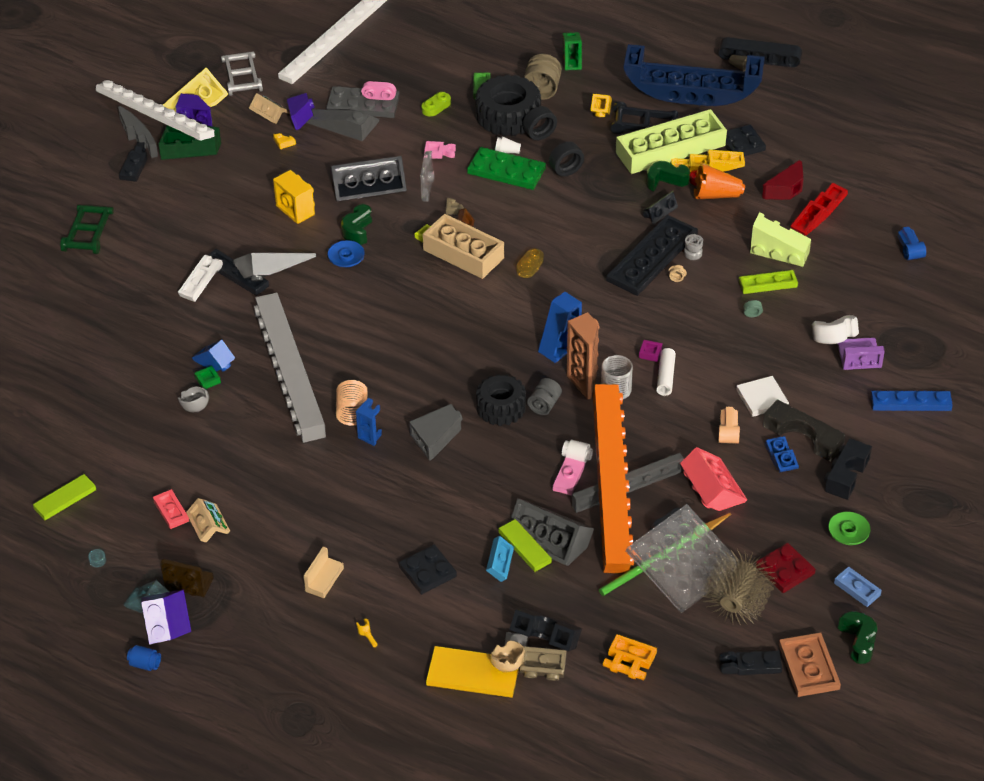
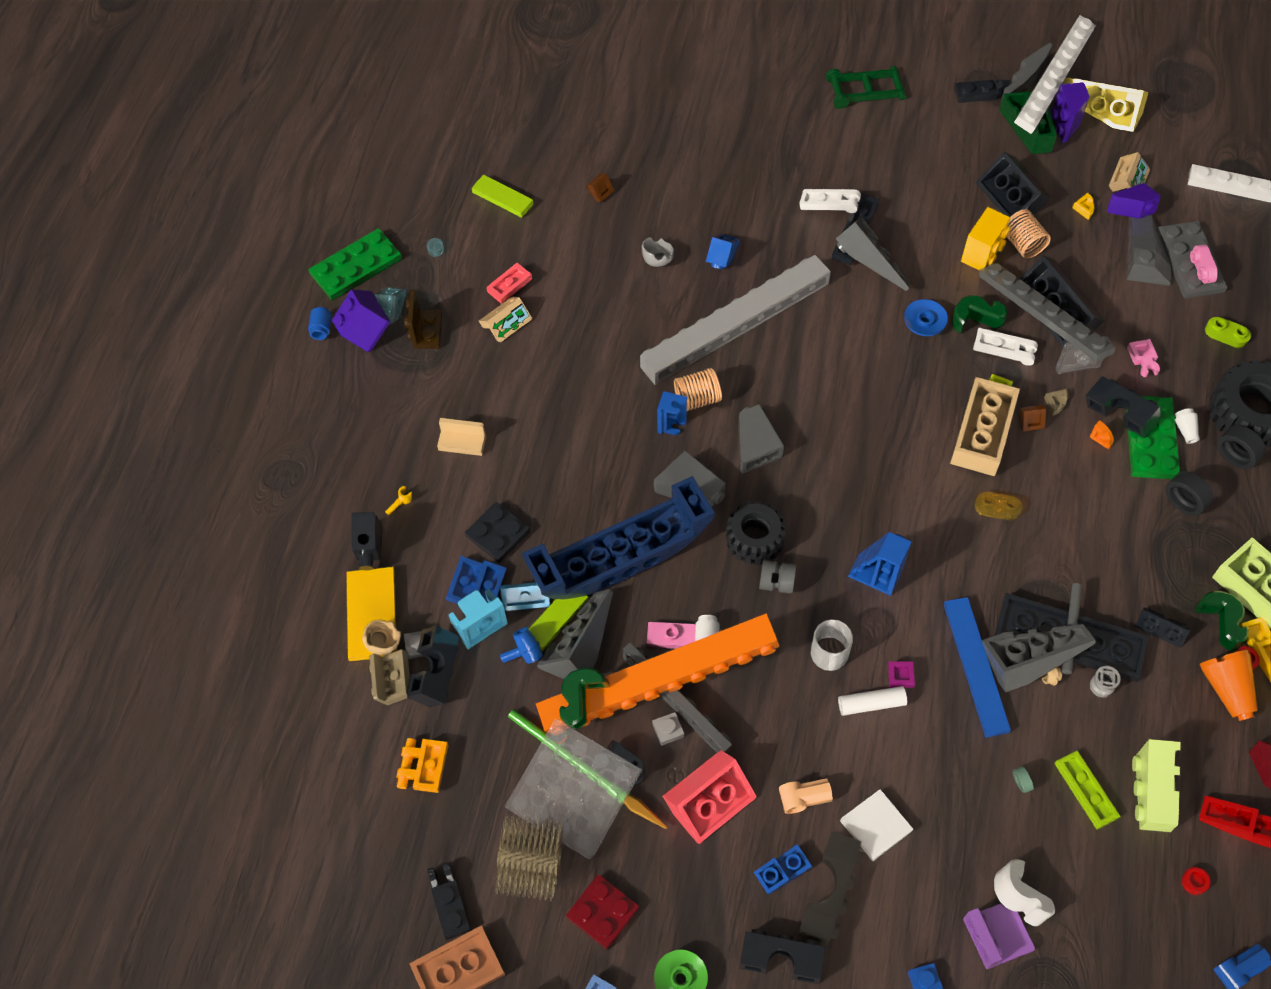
camera: 75 degrees right, 15 degrees up
(83, 623) = (355, 264): none -> green plate
(97, 424) = (600, 187): none -> reddish brown tile
(207, 377) = (693, 254): green plate -> none
(243, 71) = (1145, 131): light grey piece -> none
(247, 172) = (1012, 187): none -> black slope
(311, 172) = (1018, 231): none -> light nougat piece
(381, 180) = (1047, 312): none -> dark grey plate
(392, 219) = (1005, 346): none -> white plate
(404, 654) = (366, 538): none -> black torso
(412, 381) = (757, 439): none -> dark grey slope
(472, 593) = (474, 576): none -> blue slope
(483, 468) = (622, 548): none -> dark blue slope
(491, 160) = (1109, 395): none -> black arch
(494, 191) = (1102, 435): none -> orange tile
(513, 576) = (481, 617): none -> medium azure panel
(549, 564) = (527, 647): none -> blue piece
(583, 353) = (834, 593): nougat slope -> none
(614, 526) = (574, 692): none -> dark green animal
(648, 248) = (1073, 620): none -> dark grey bar
(648, 496) = (668, 728): none -> light grey plate
(656, 310) = (976, 667): none -> blue tile
(661, 275) = (1026, 657): none -> dark grey wedge
(847, 249) = (1196, 881): none -> red tile

